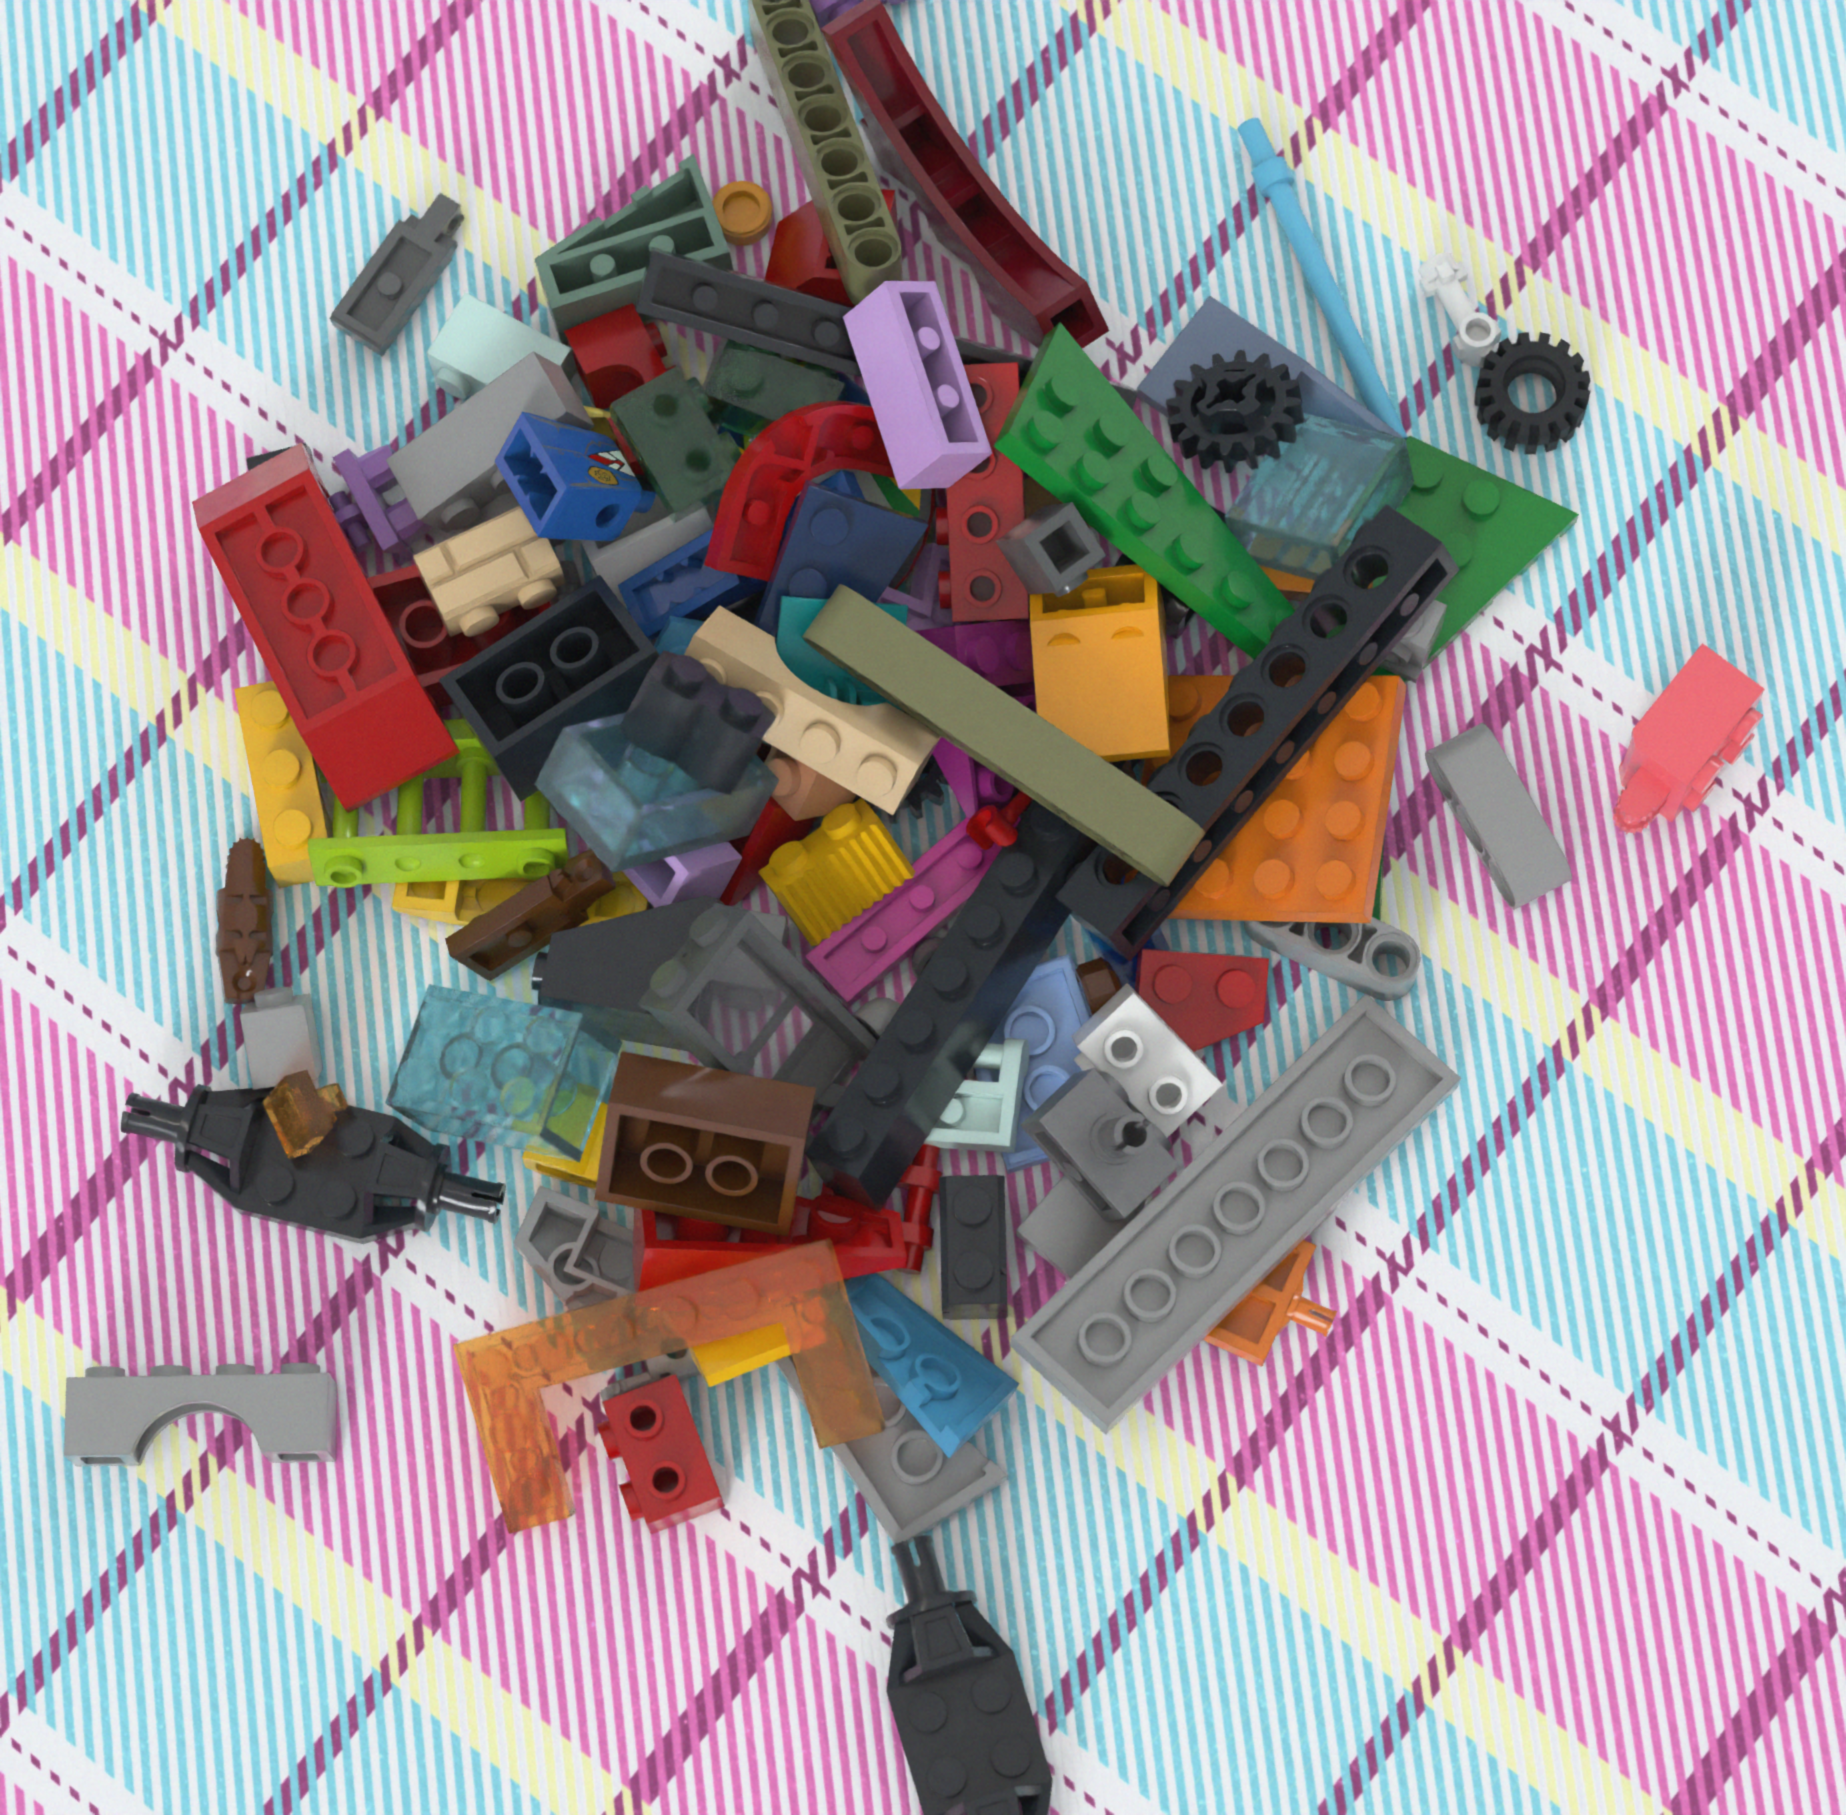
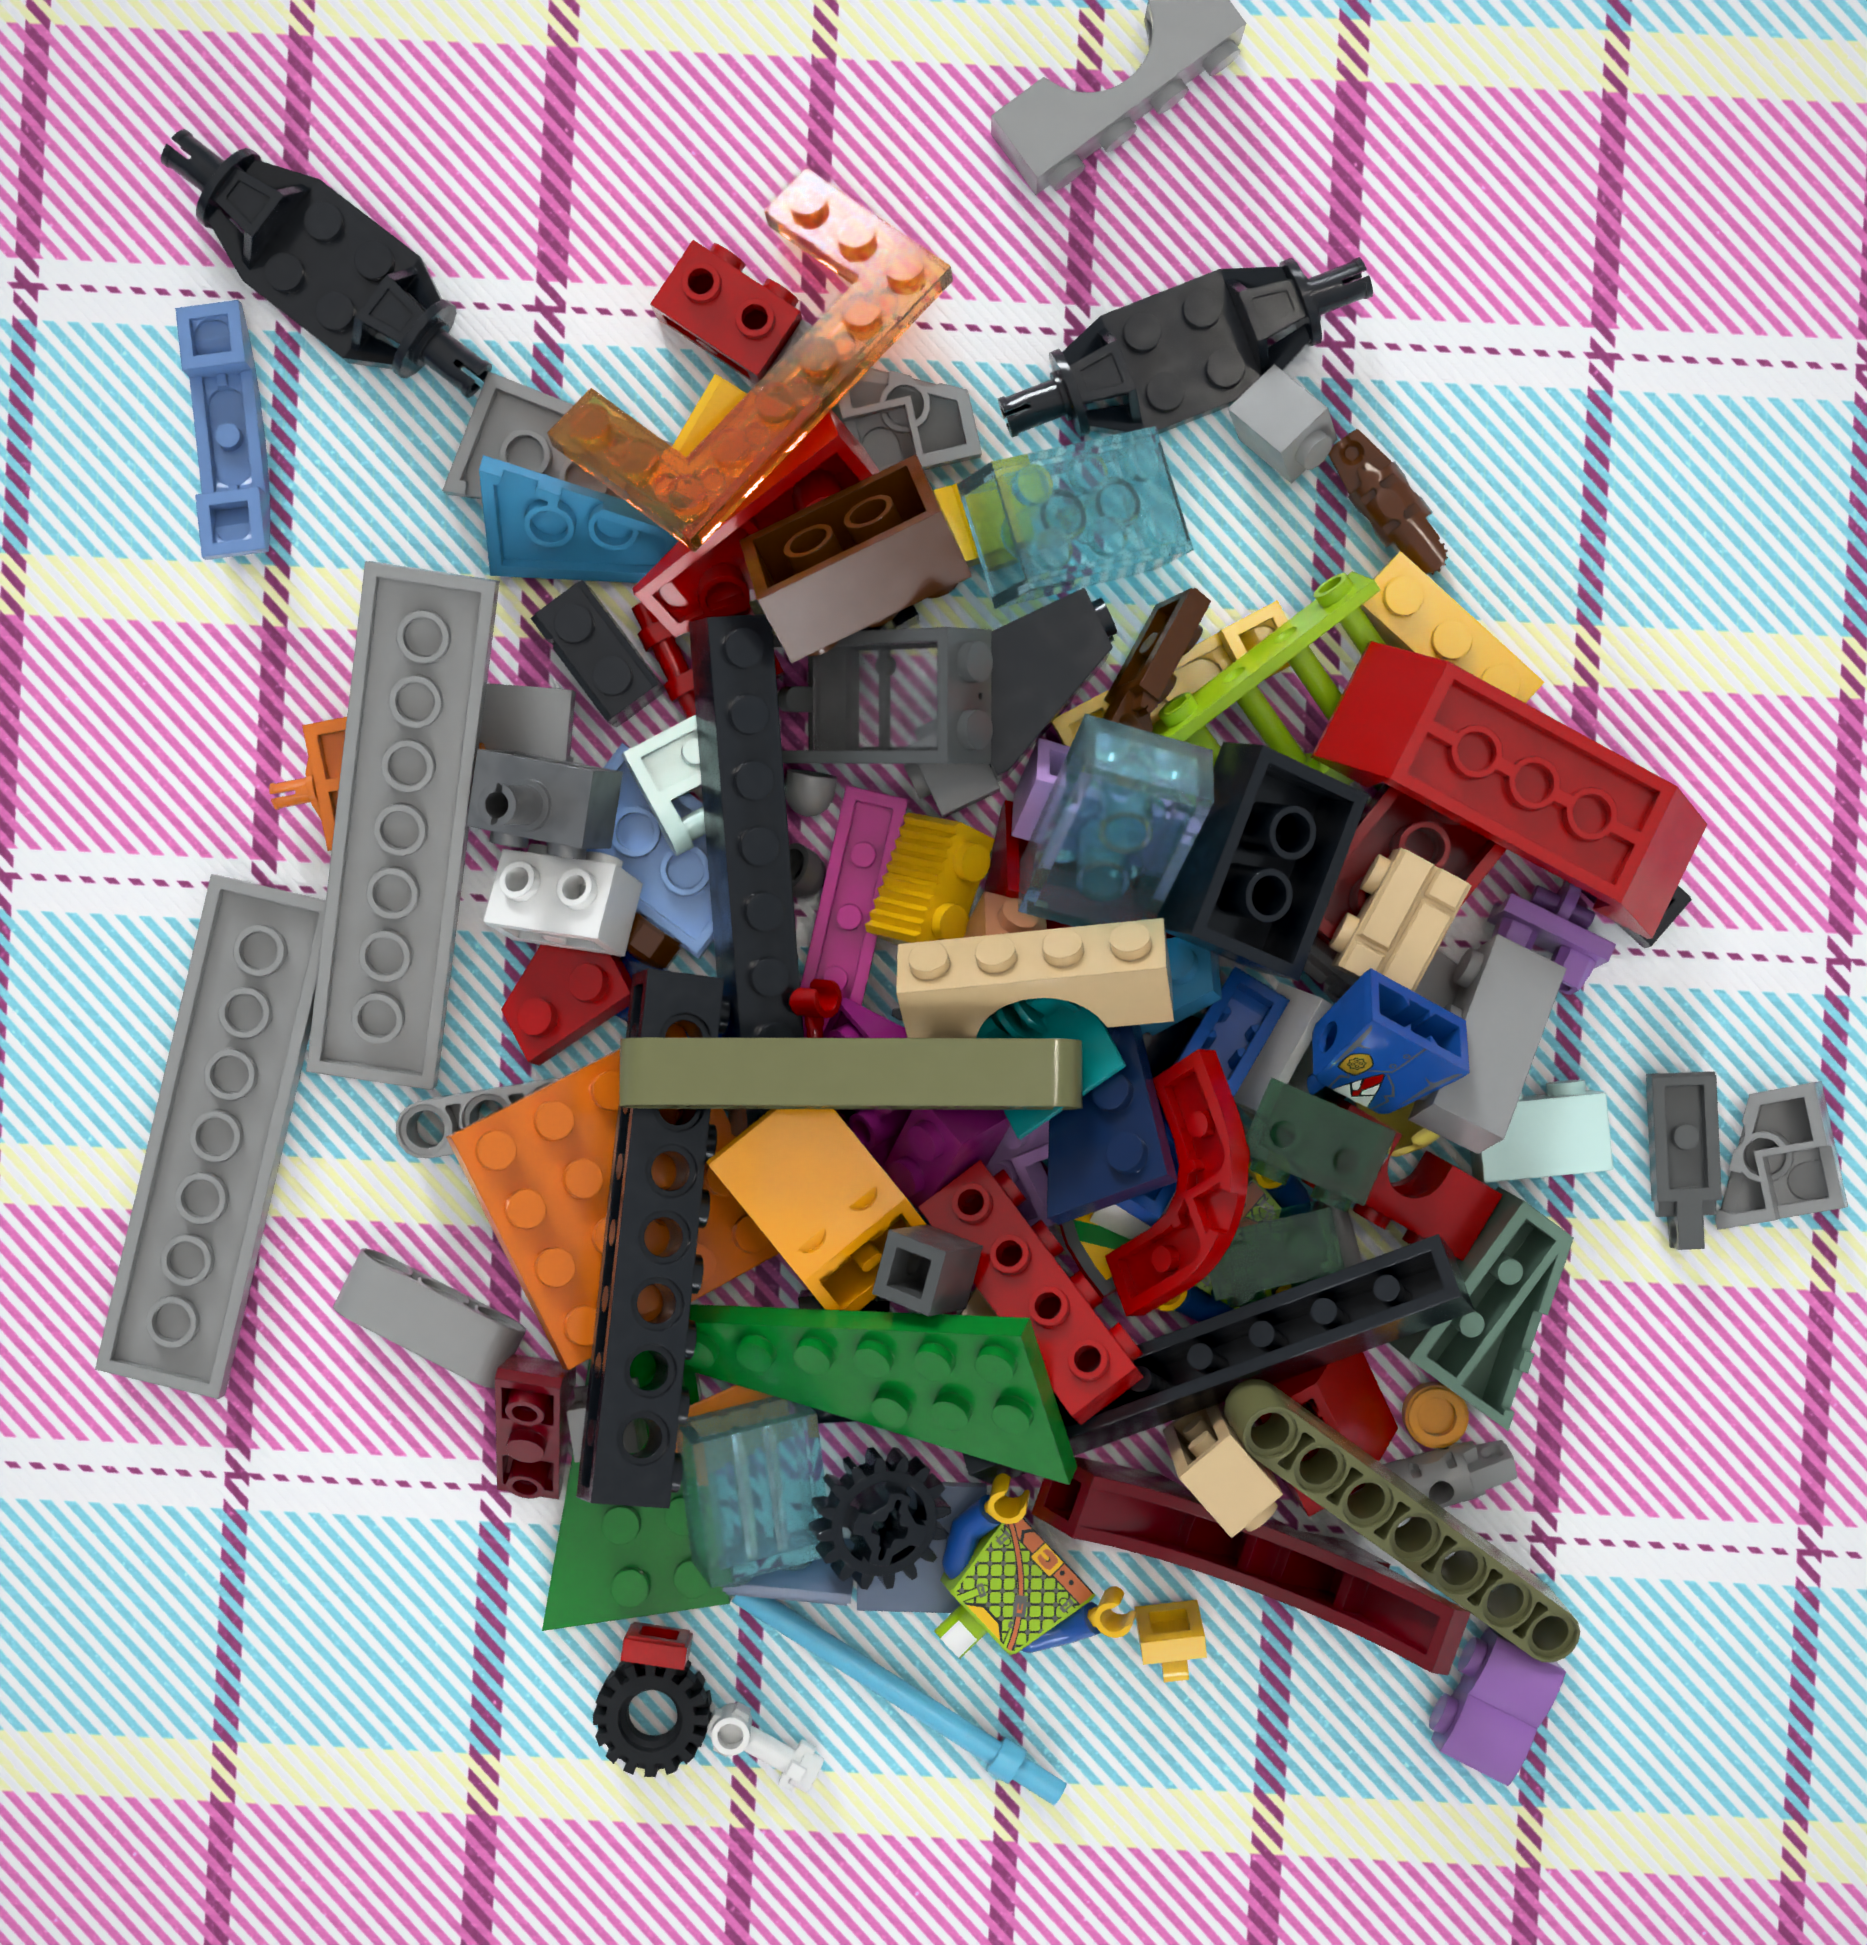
camera: 135 degrees right, 15 degrees up
(302, 1112) = (1217, 370): clear orange tile -> none
(327, 221) = (1783, 1159): none -> light grey slope
(697, 722) = (1108, 894): black brick -> none
(756, 157) = (1457, 1471): none -> light grey hinge
(917, 384) = (1142, 1333): lavender brick -> none
(936, 249) = (1221, 1471): none -> tan brick
(1071, 181) = (1171, 1636): none -> yellow tile
(1158, 1656) = (228, 430): none -> medium blue slope
(1162, 293) = (1017, 1583): none -> torso
(1467, 671) = (532, 1425): none -> dark red slope
(1490, 440) = (657, 1645): none -> red tile
(1573, 1082) = (216, 1139): none -> light grey plate
(1684, 738) = (309, 1485): coral hinge -> none

